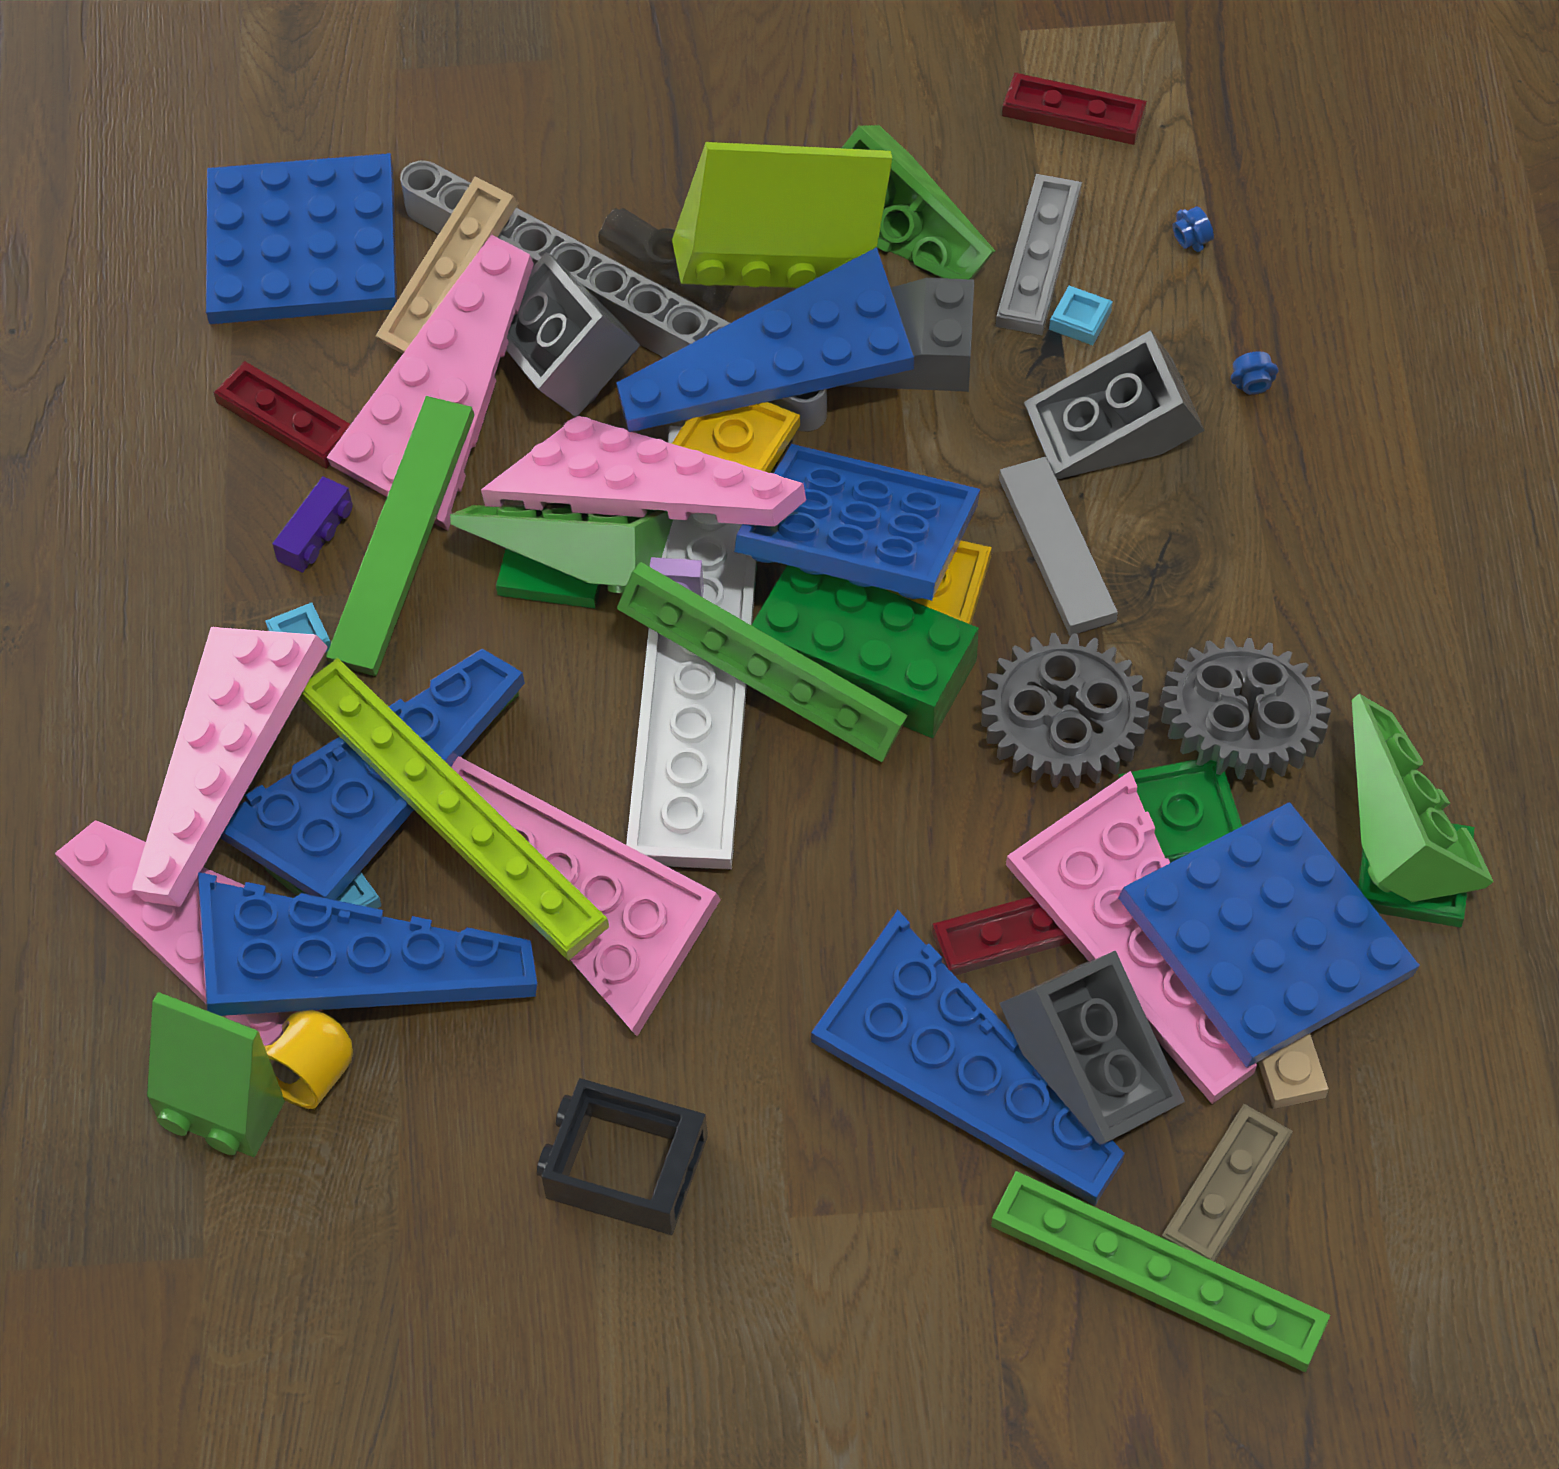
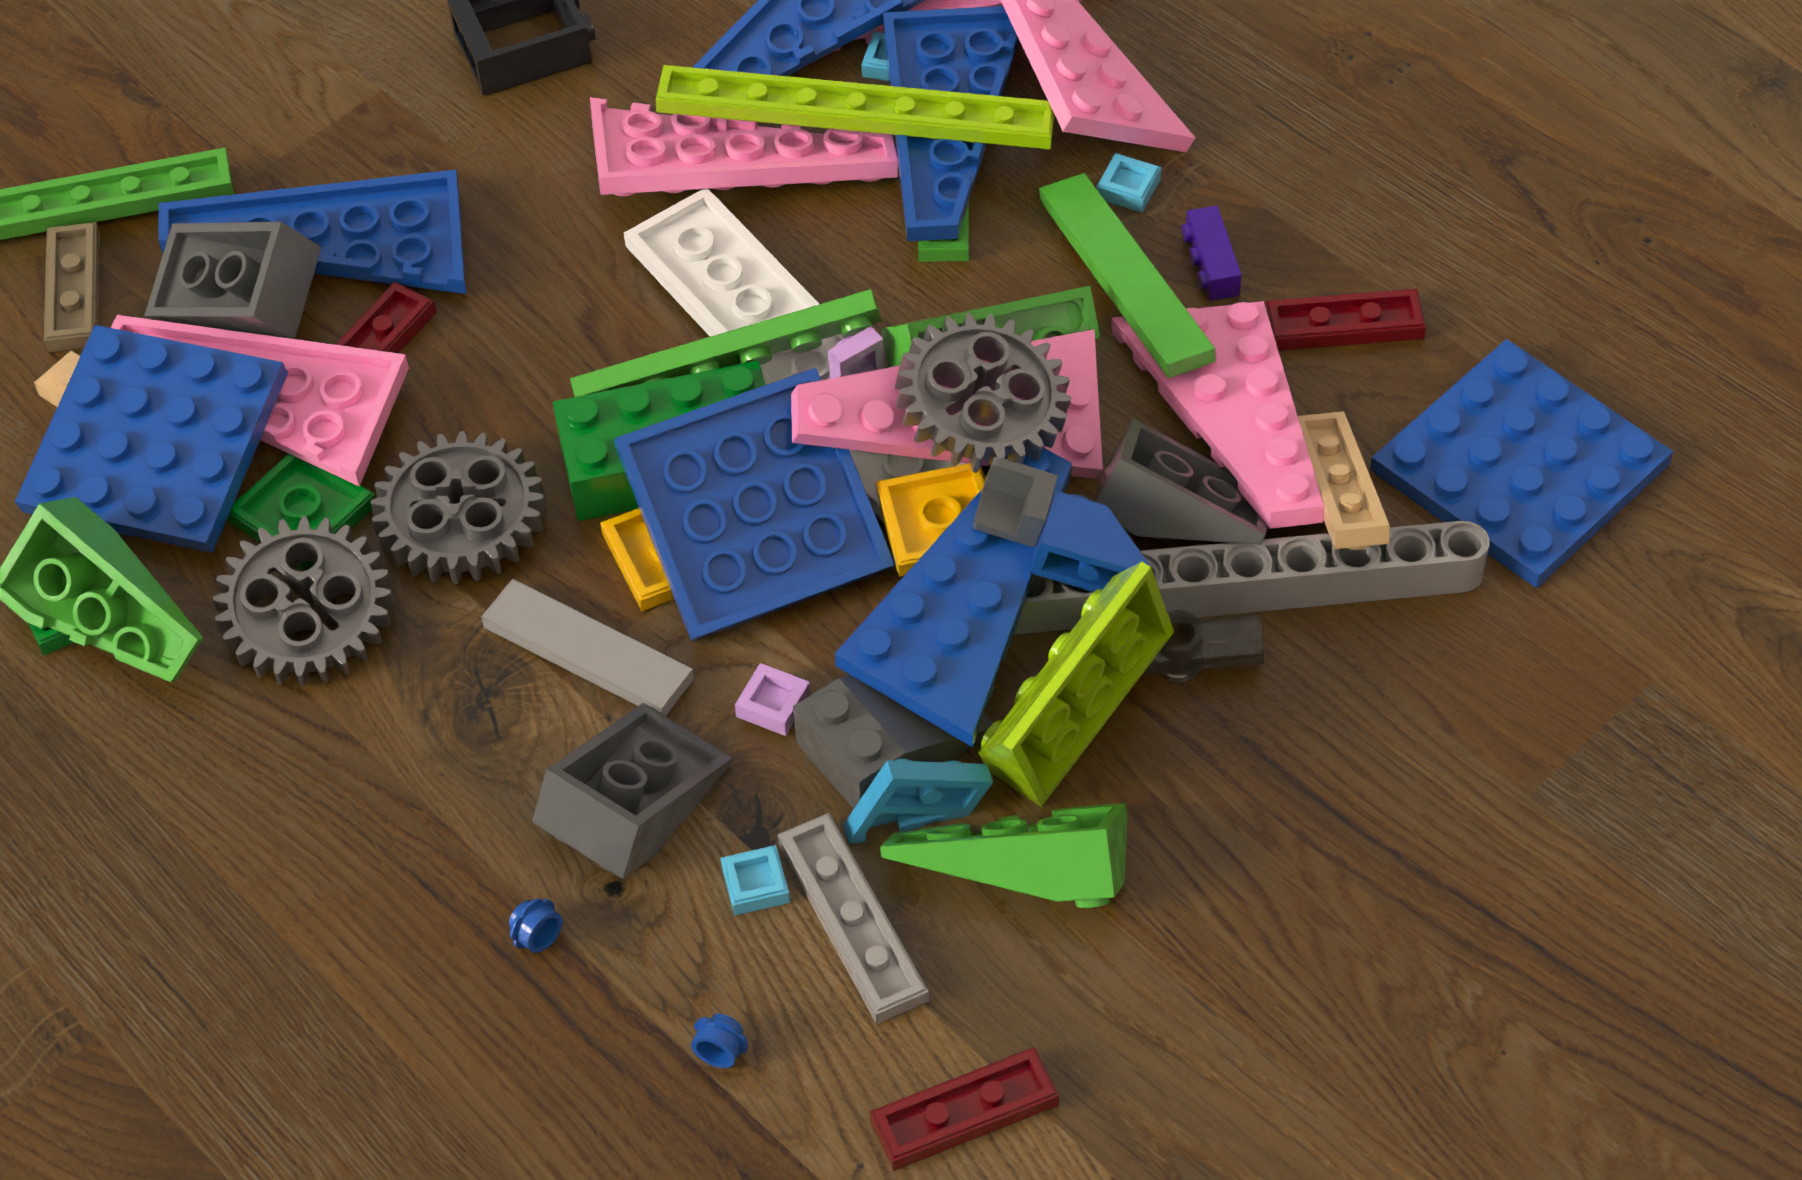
camera: 140 degrees right, 5 degrees down
(638, 436) = (955, 360): none -> flat silver gear
(682, 302) = (1082, 544): none -> blue slope
(694, 347) = (1014, 501): none -> dark grey panel
(946, 258) = (918, 795): none -> dark azure wing
(964, 411) = (771, 698): none -> lavender plate

